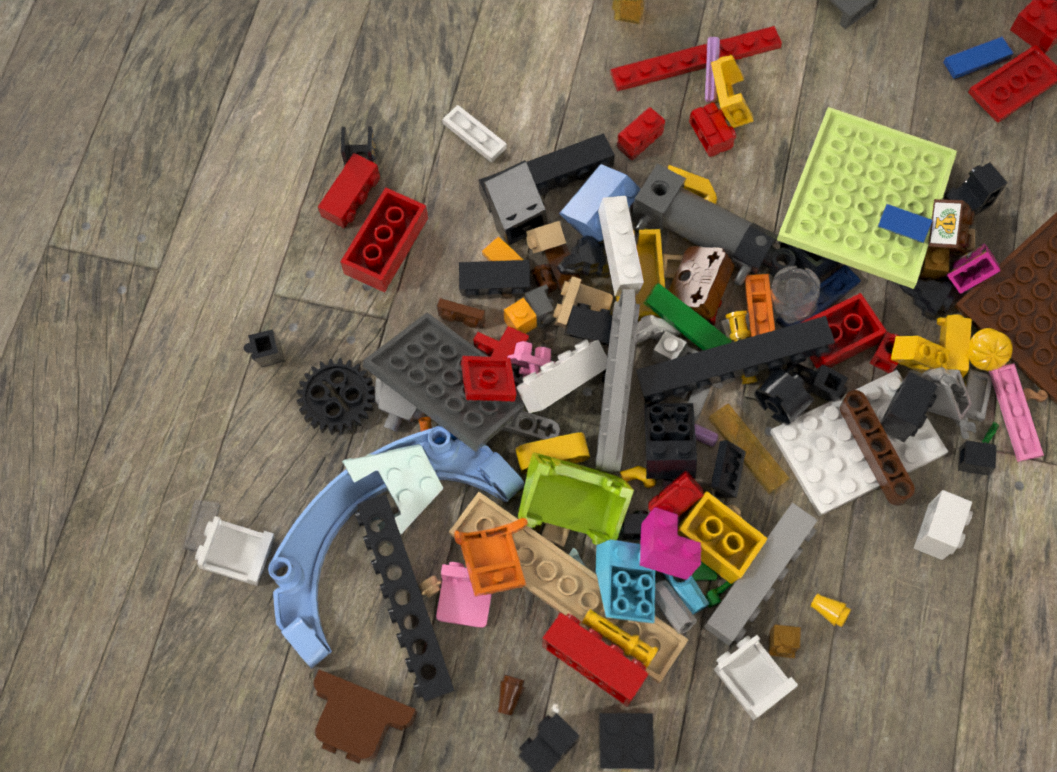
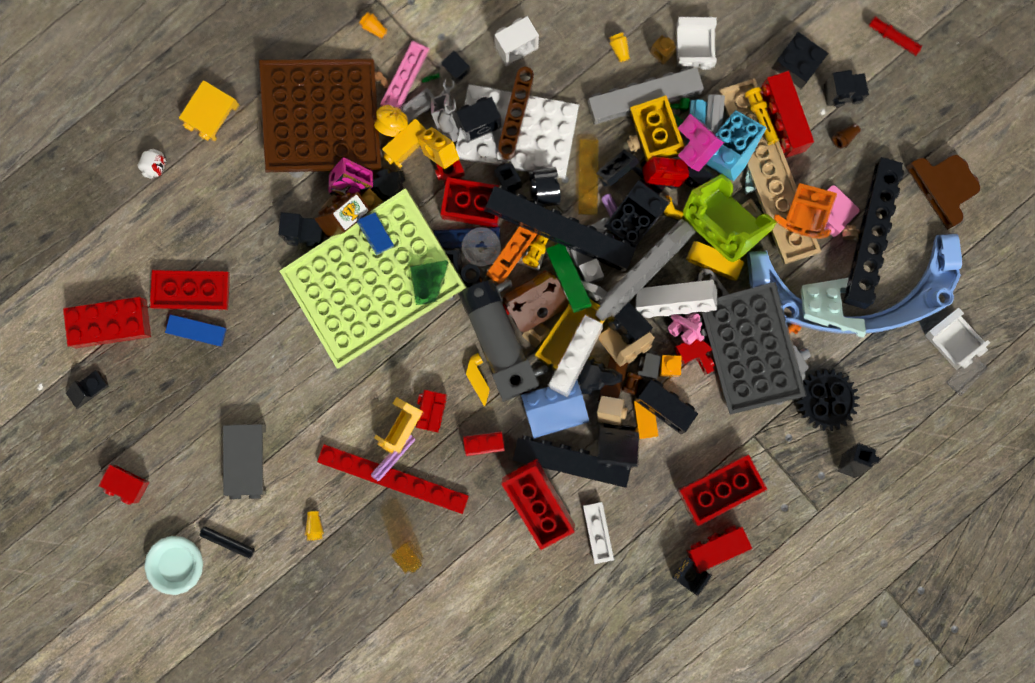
camera: 145 degrees left, 15 degrees up
(467, 315) = (710, 404): reddish brown plate -> none
(488, 378) = (729, 329): red plate -> none
(549, 110) = (538, 504): none -> red brick
(817, 213) = (428, 281): none -> clear green wing

